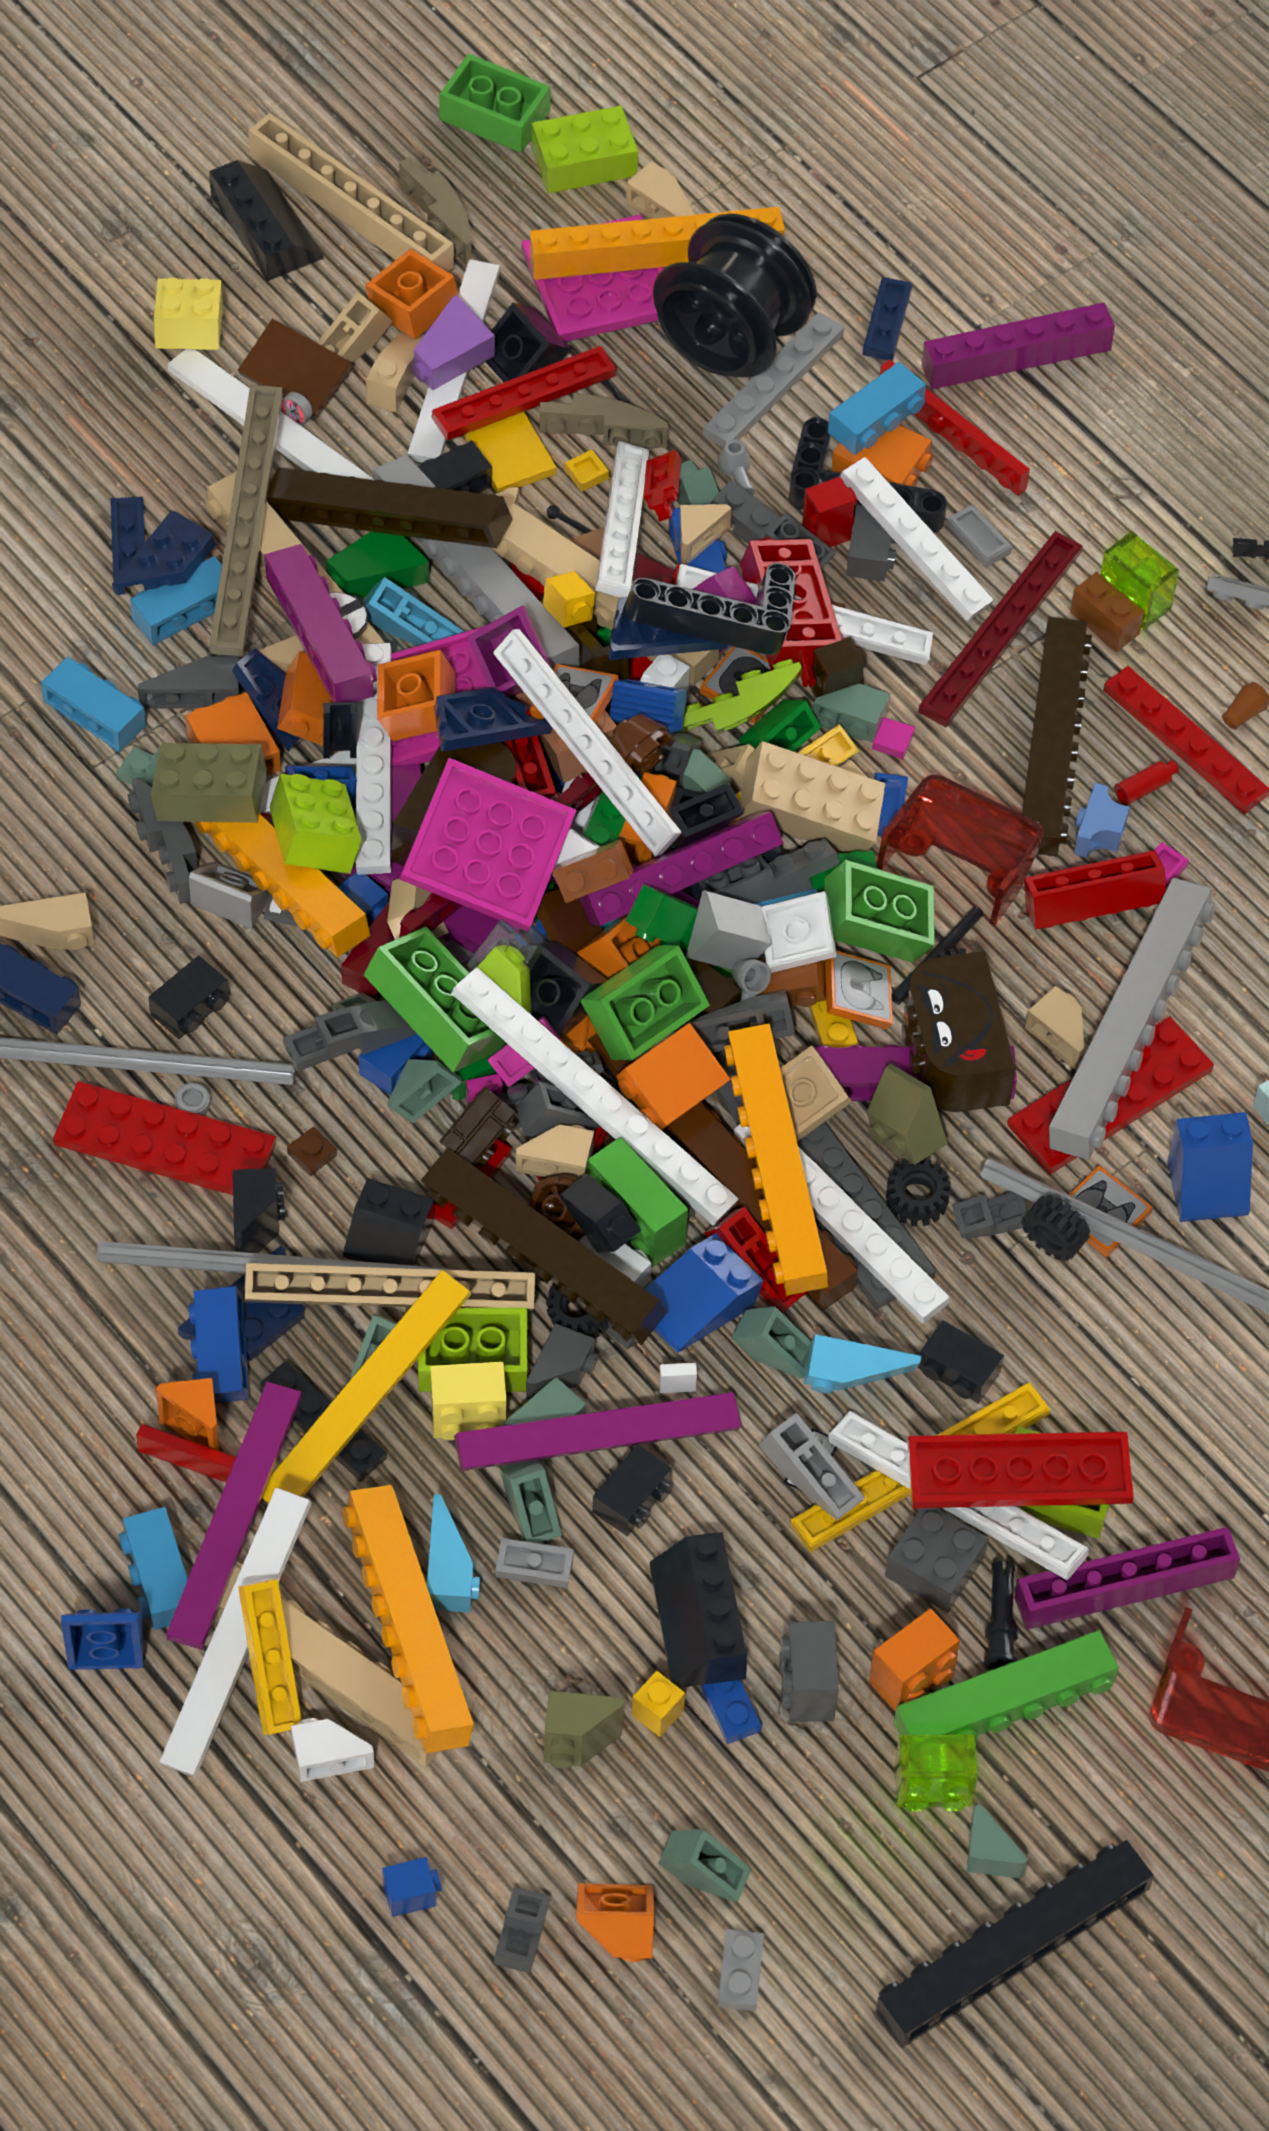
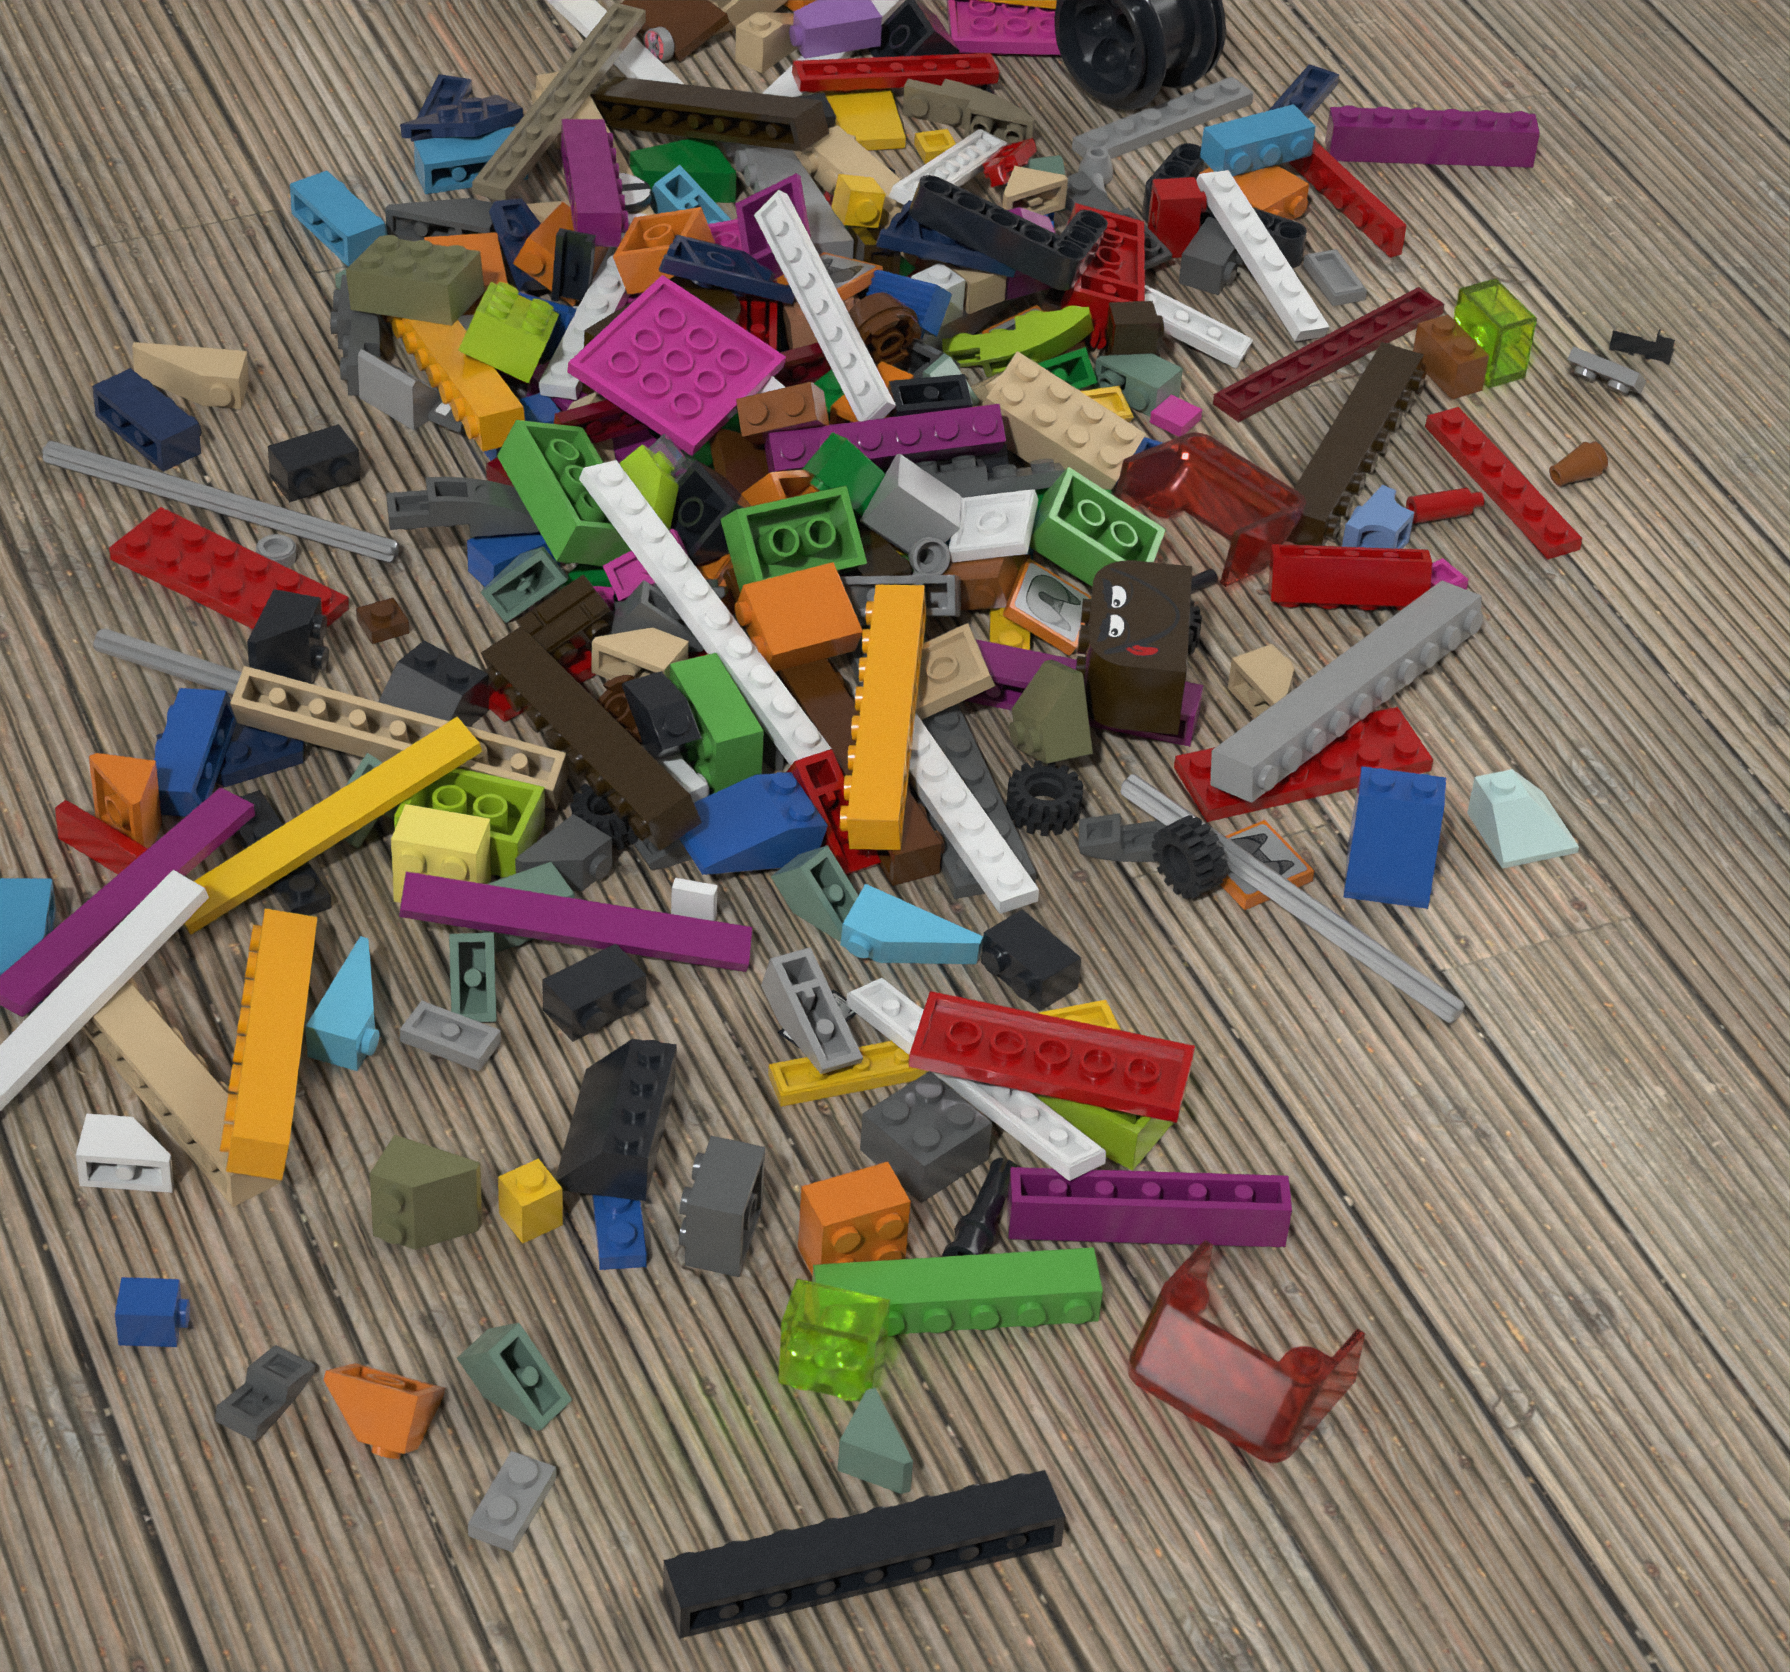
camera: 15 degrees right, 15 degrees down
(270, 1656) = (93, 1034): yellow plate -> none

